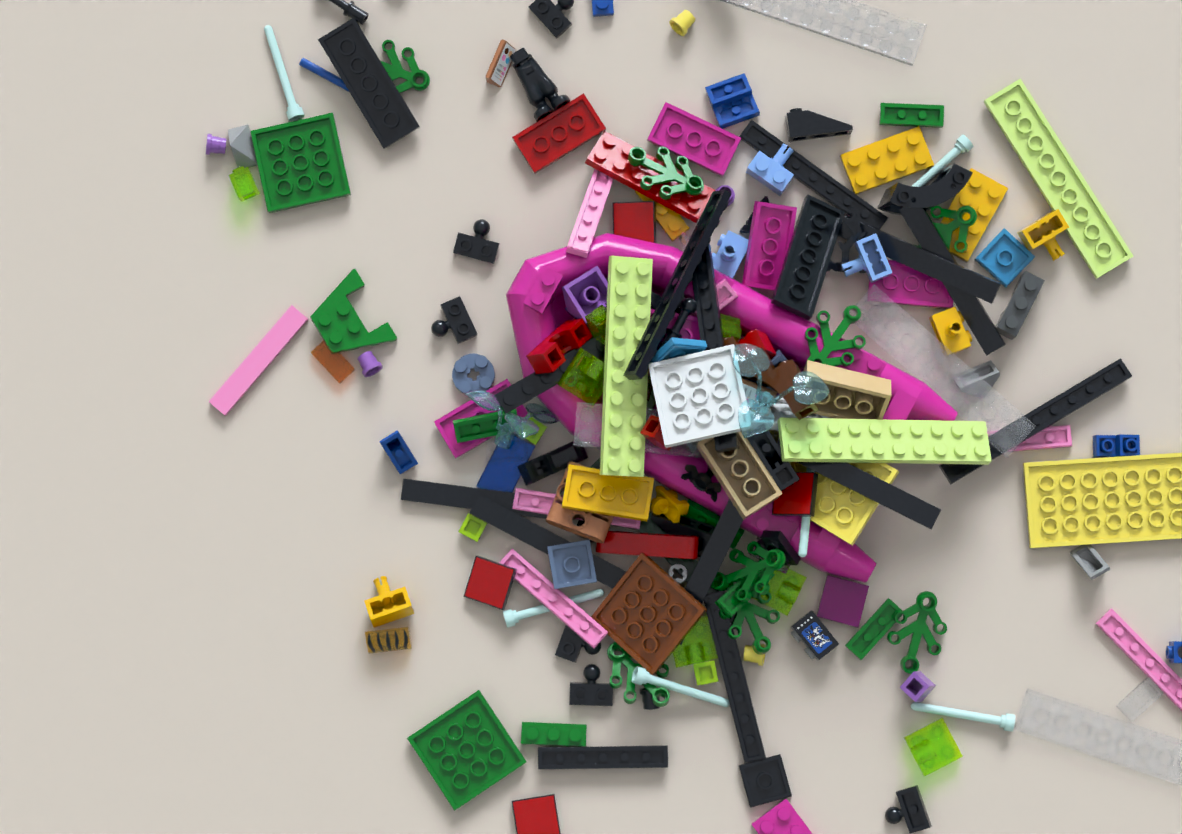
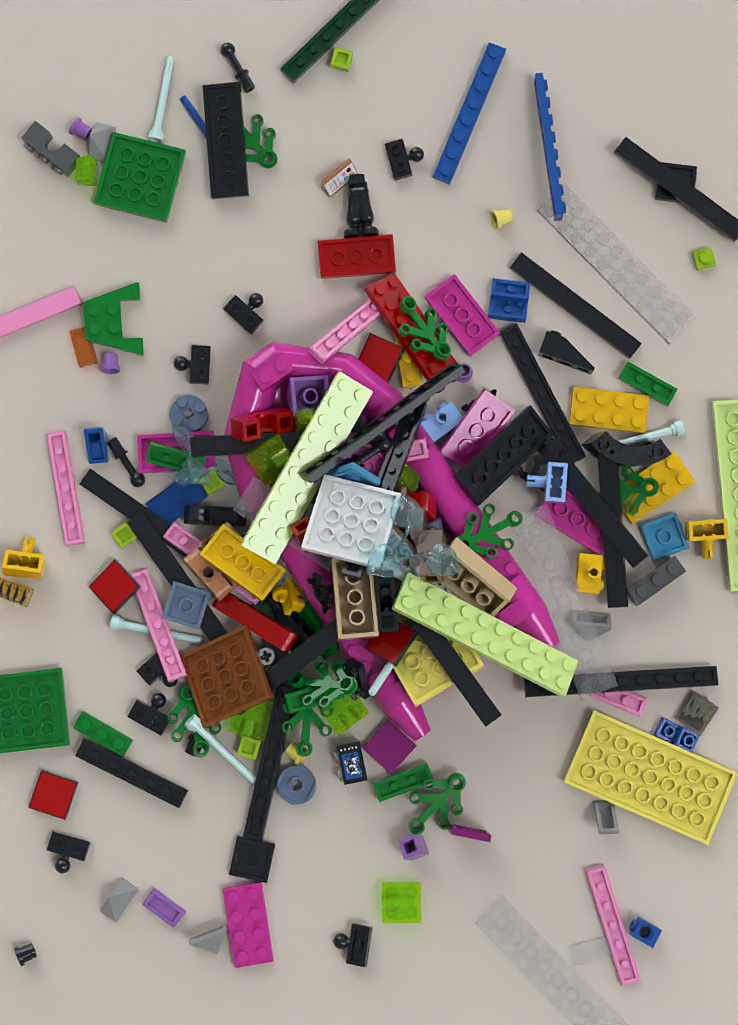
camera: 25 degrees right, 0 degrees up
(214, 185) = (38, 139): none -> dark grey arch
(388, 510) = (65, 488): none -> bright pink tile
(454, 465) = (136, 479): none -> black pin
(761, 692) = (286, 789): none -> sand blue plate
(771, 170) = (511, 371): light blue brick -> none
(800, 73) = (575, 305): none -> black tile
(965, 643) = (469, 832): none -> magenta tile
(1005, 721) = (470, 912): light aqua piece -> none
(1123, 414) = (696, 712): none -> piece

